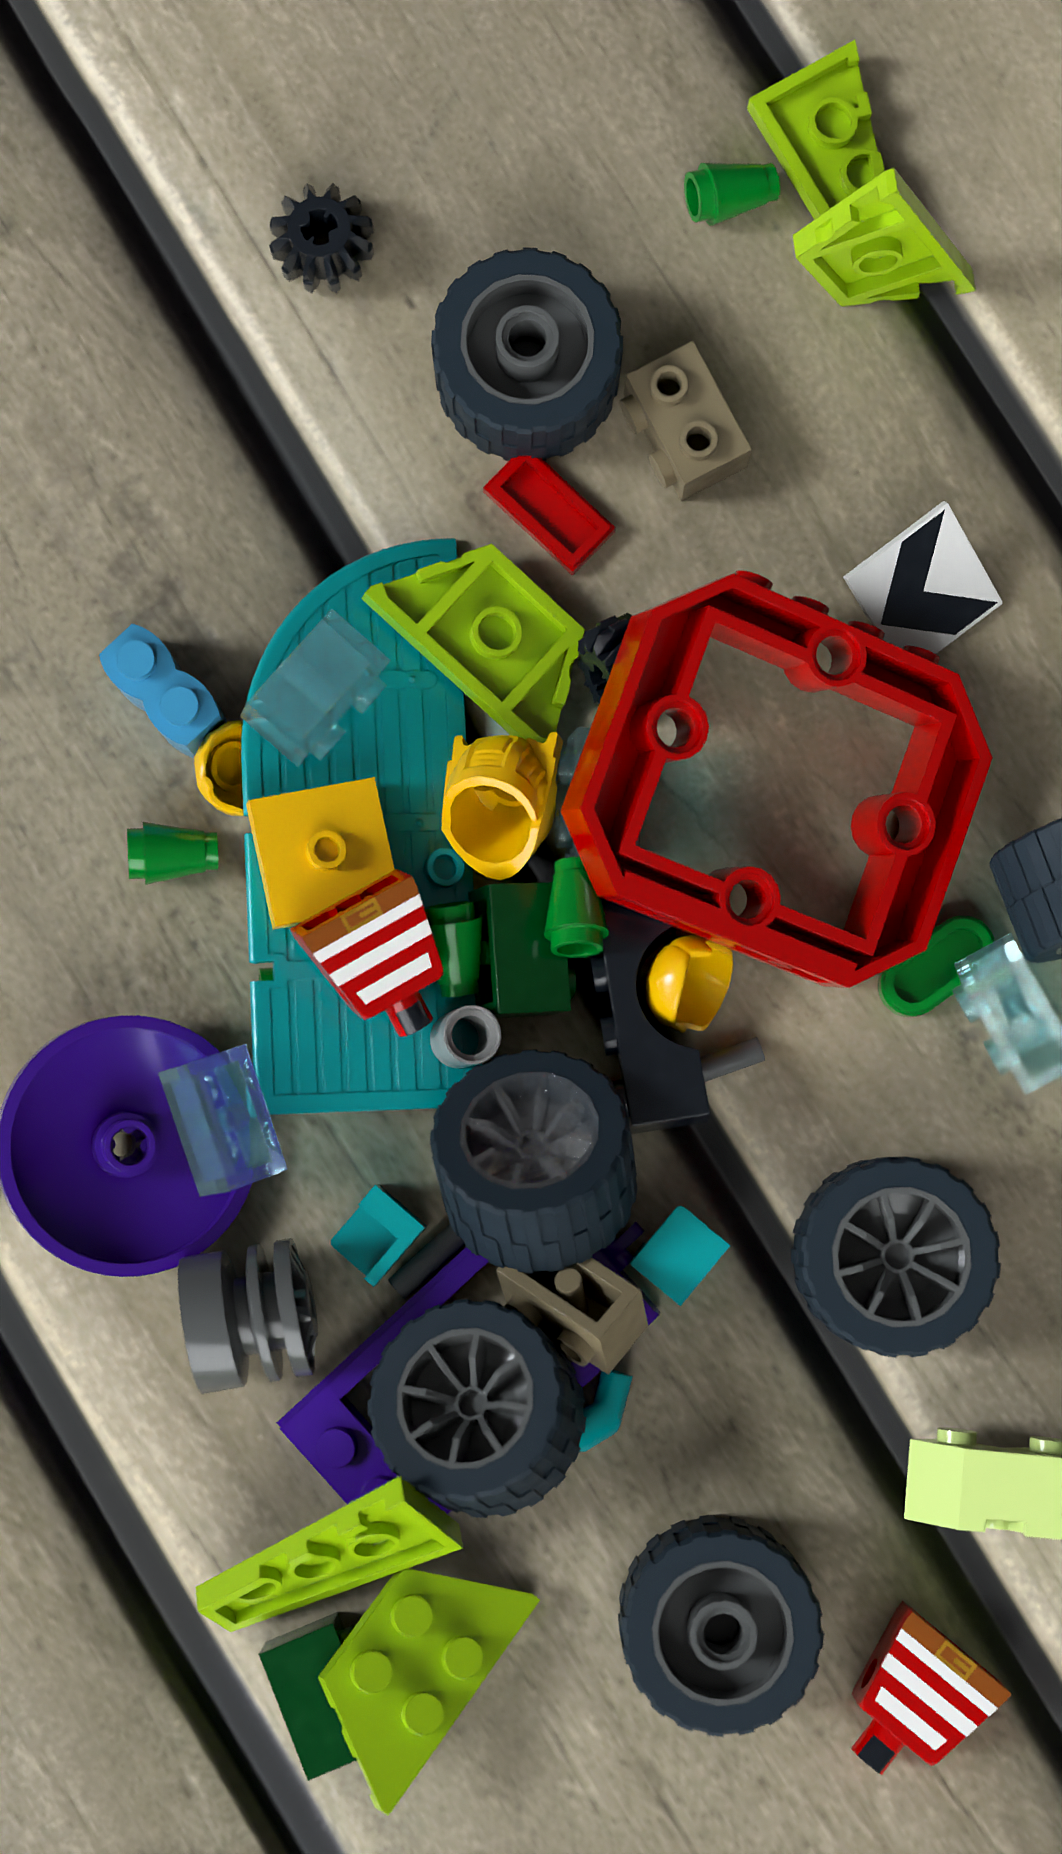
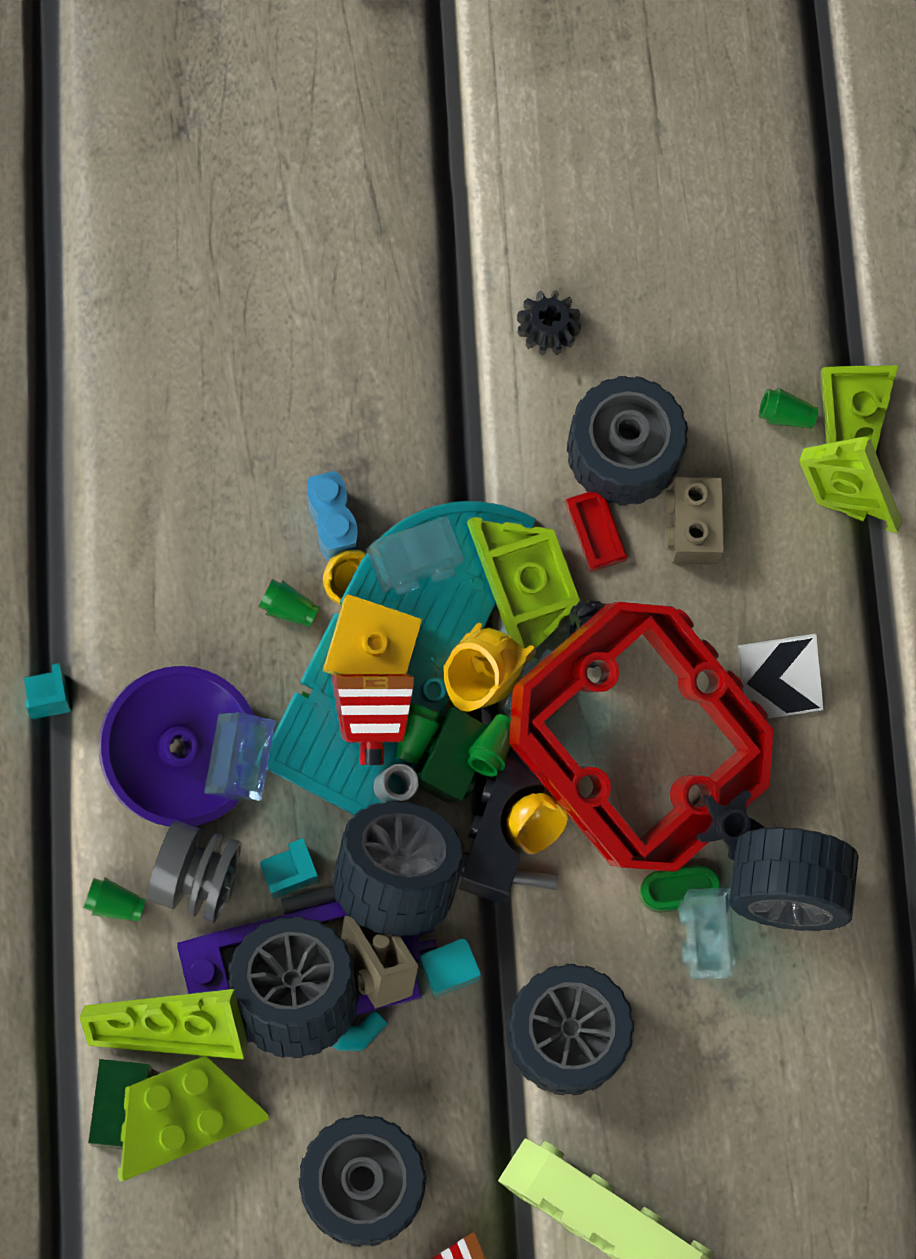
camera: 20 degrees right, 10 degrees down
(154, 1412) = (113, 901): none -> green cone
(966, 841) = (728, 821): none -> black animal

